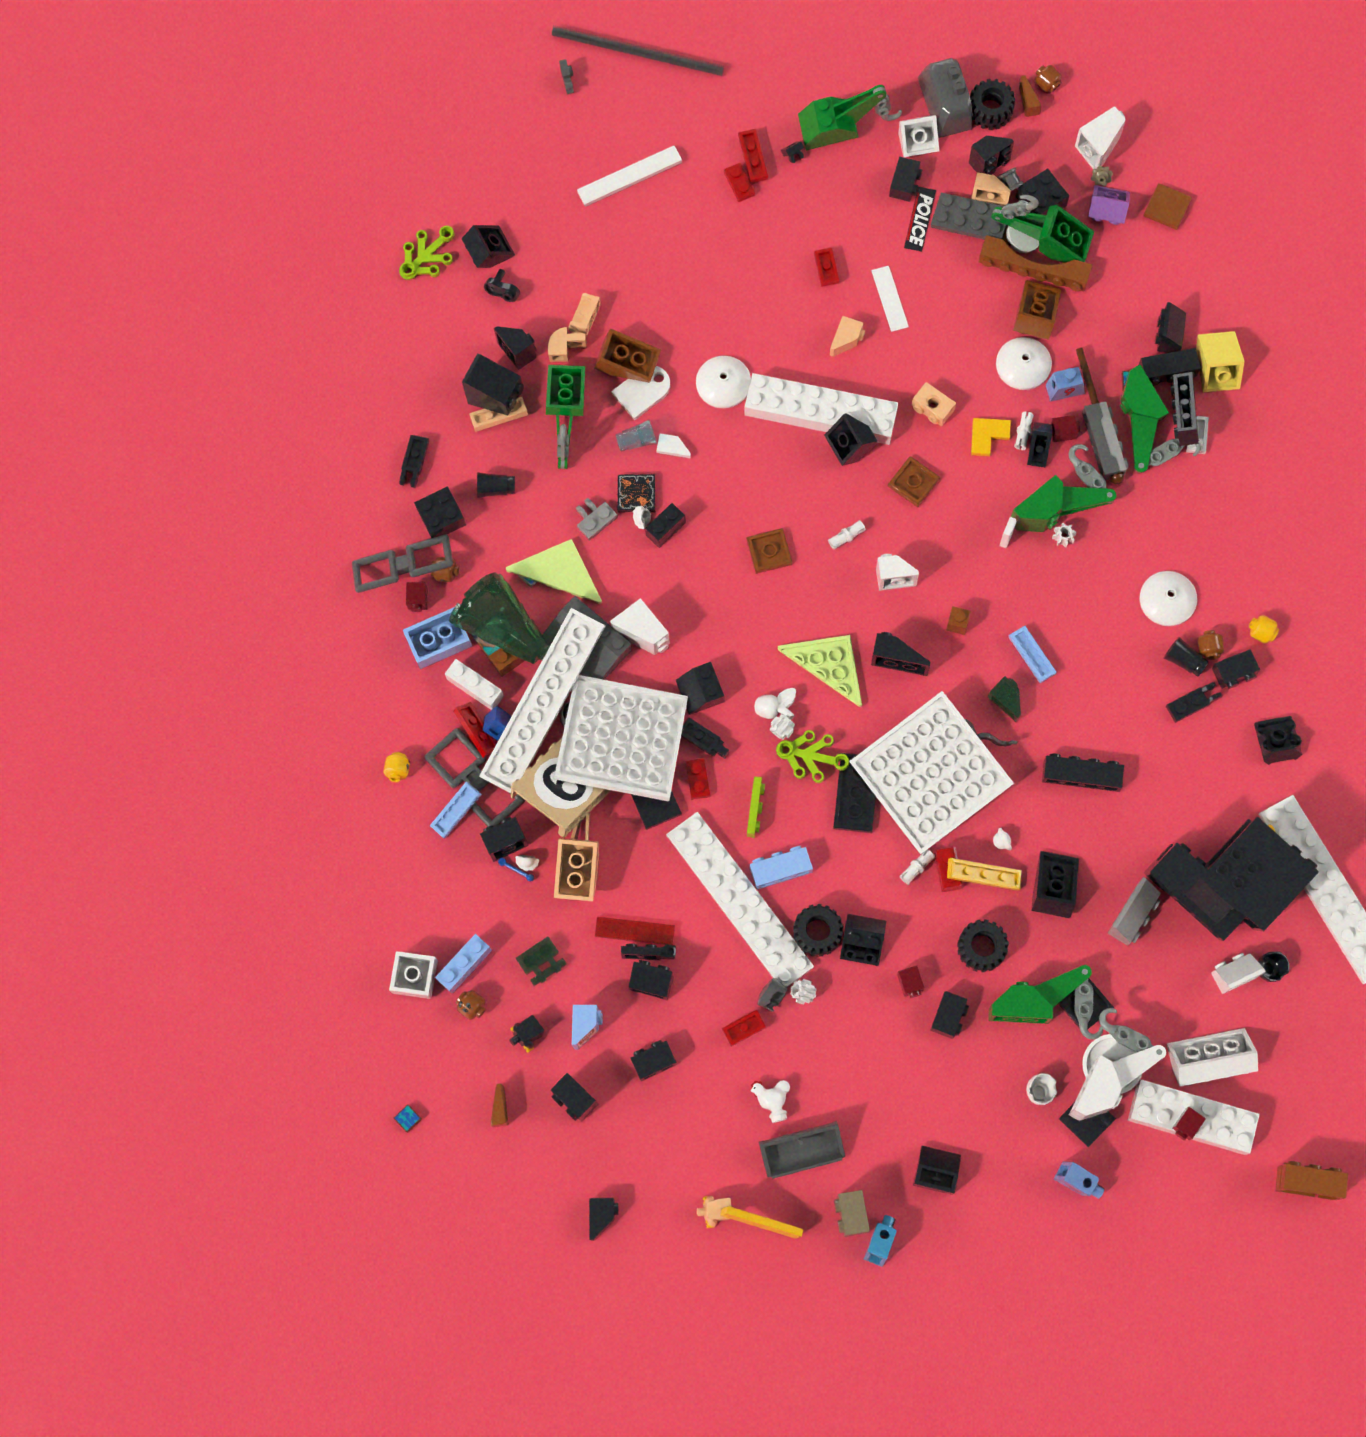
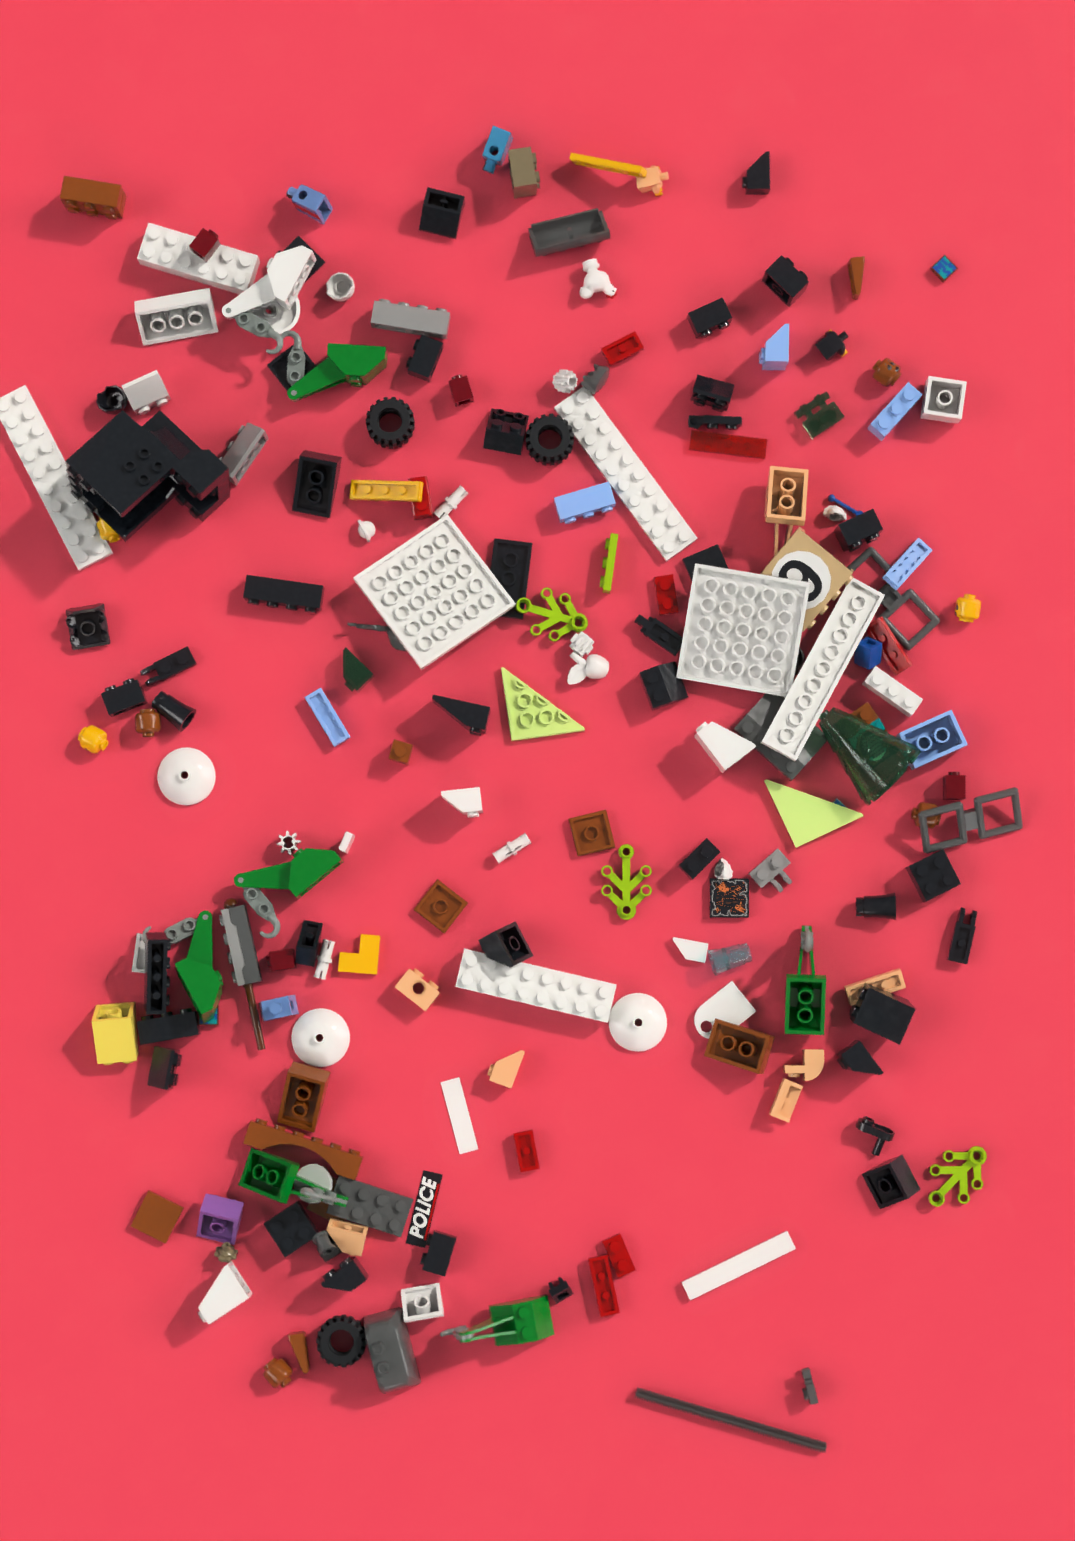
camera: 170 degrees right, 10 degrees up
(735, 502) = (626, 885): none -> lime plant
(966, 1054) = (410, 319): none -> light grey brick

